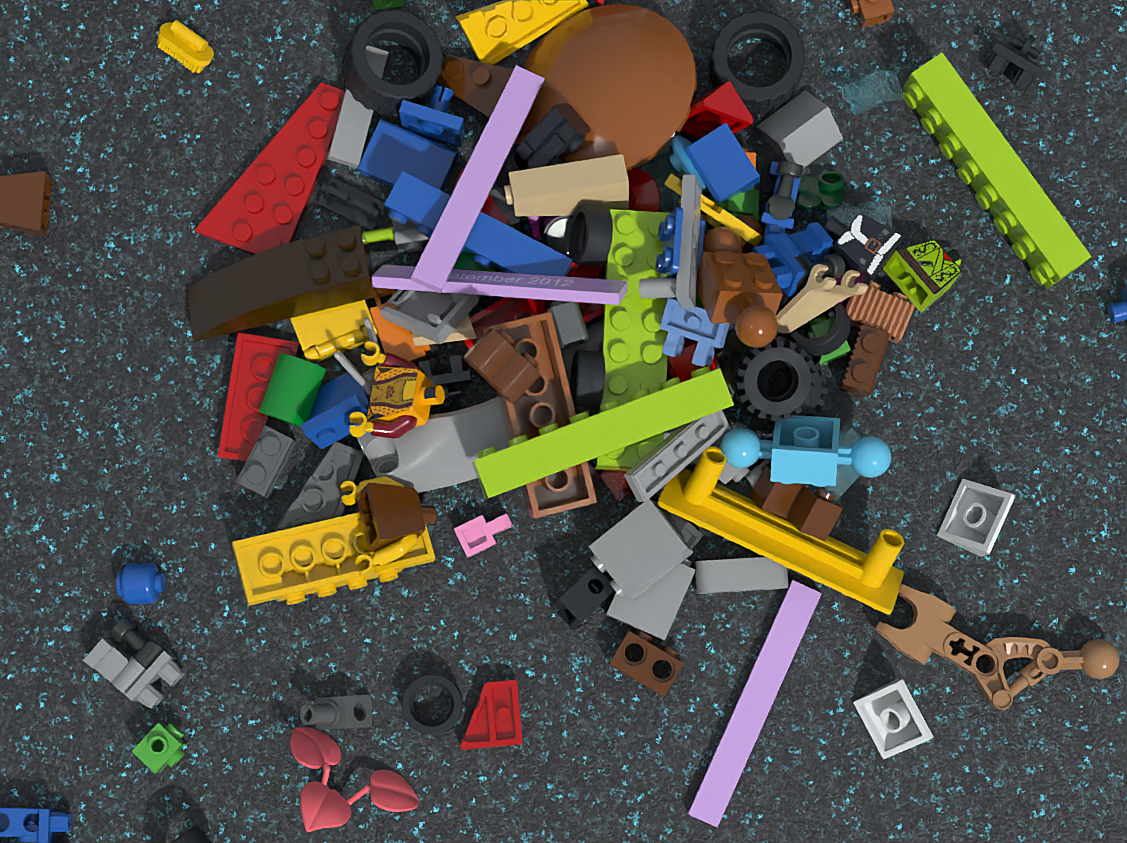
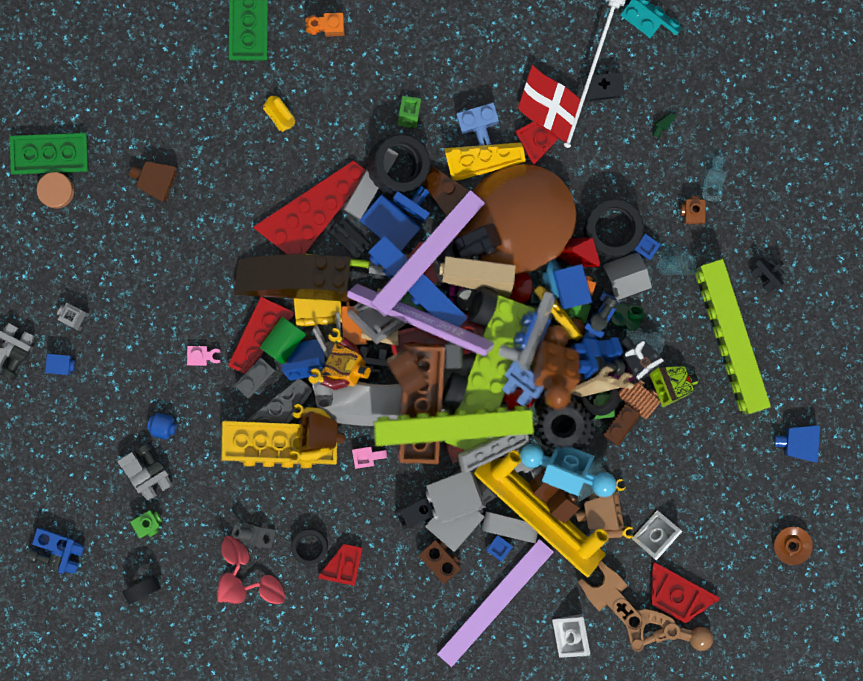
camera: 20 degrees right, 5 degrees up
(168, 455) = (198, 355): none -> bright pink plate
(734, 613) = (499, 548): none -> blue plate
(816, 78) = (647, 247): none -> blue plate
(882, 505) = (605, 514): none -> medium nougat torso
(1039, 601) = (677, 595): none -> red wing

